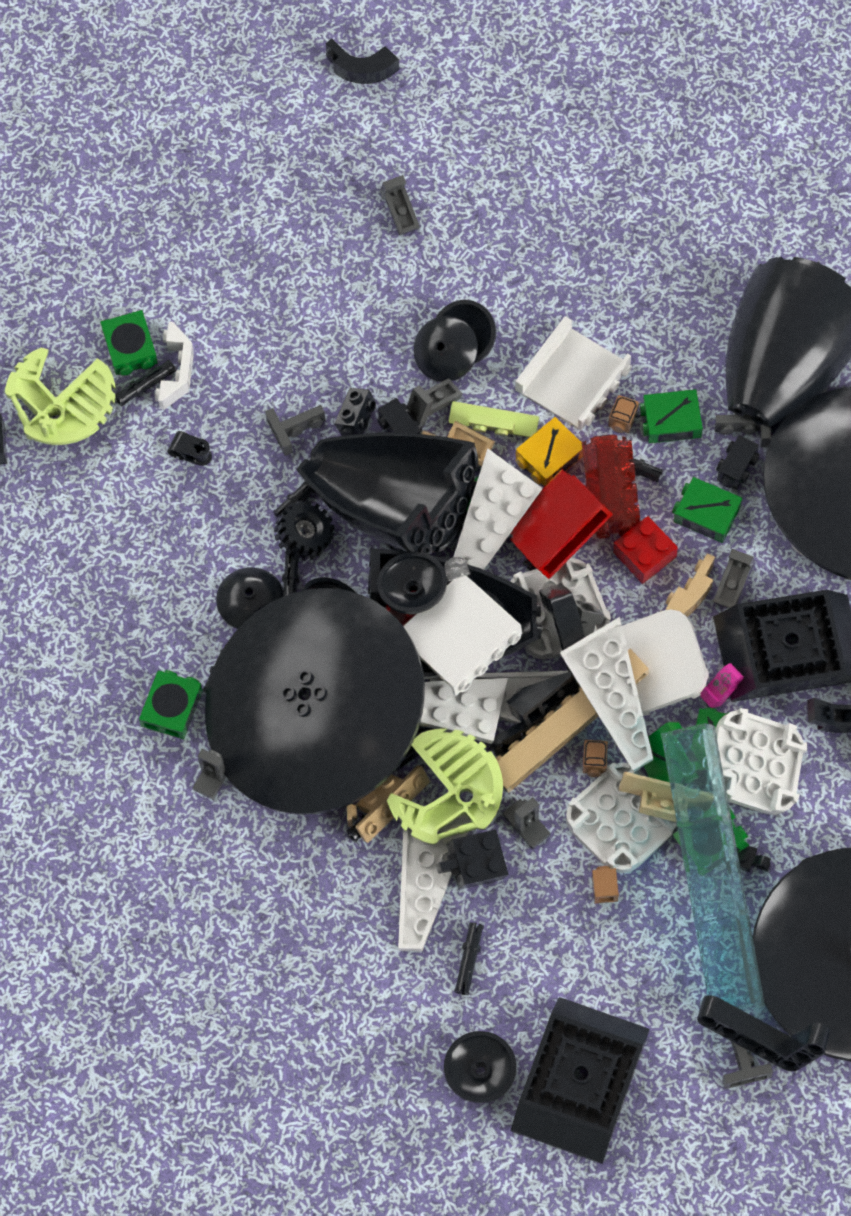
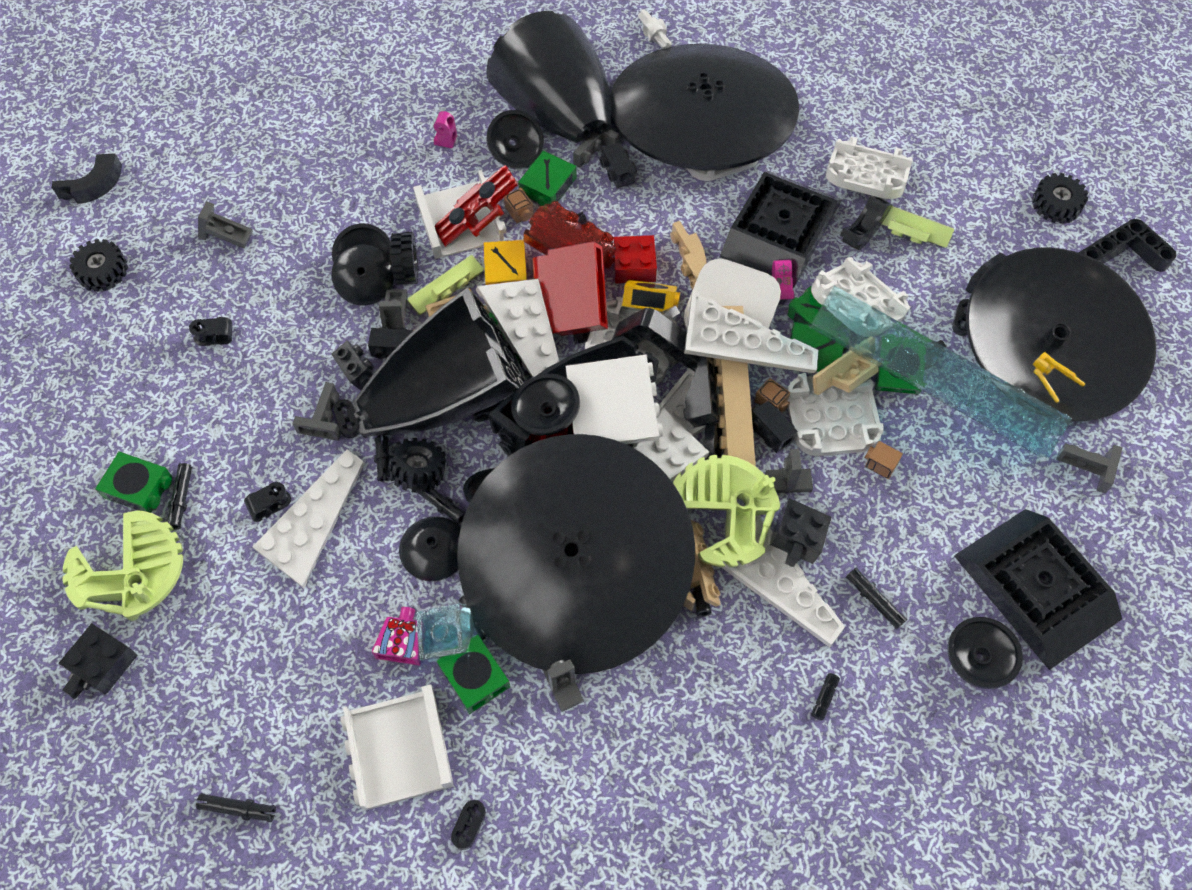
camera: 55 degrees left, 5 degrees down
(59, 781) = (474, 827): none -> black beam
(76, 695) = (396, 749): none -> white panel
(157, 632) = (398, 639): none -> torso
(173, 390) = (173, 445): white slope -> none
(184, 658) = (444, 631): none -> clear light blue slope
(192, 493) = (304, 529): none -> white wing
(299, 150) = (107, 273): none -> black bush
(302, 283) = (213, 331): none -> black piece
(303, 443) = (342, 420): none -> black beam
(353, 972) = (825, 696): none -> black axle
(456, 568) = (561, 365): clear plate -> none
(484, 368) = (404, 258): none -> black bush
(561, 782) = (772, 426): none -> black brick
(571, 379) = (476, 198): none -> red piece
(611, 589) = (650, 295): none -> brick
(650, 290) = (445, 129): none -> dark pink leg
(674, 360) = (521, 129): none -> black dish
(706, 509) = (636, 205): green brick -> none
(734, 578) = (703, 220): dark grey bracket -> none
(762, 1039) = (1101, 431): black beam -> none
(805, 959) = (1046, 365): none -> yellow plant

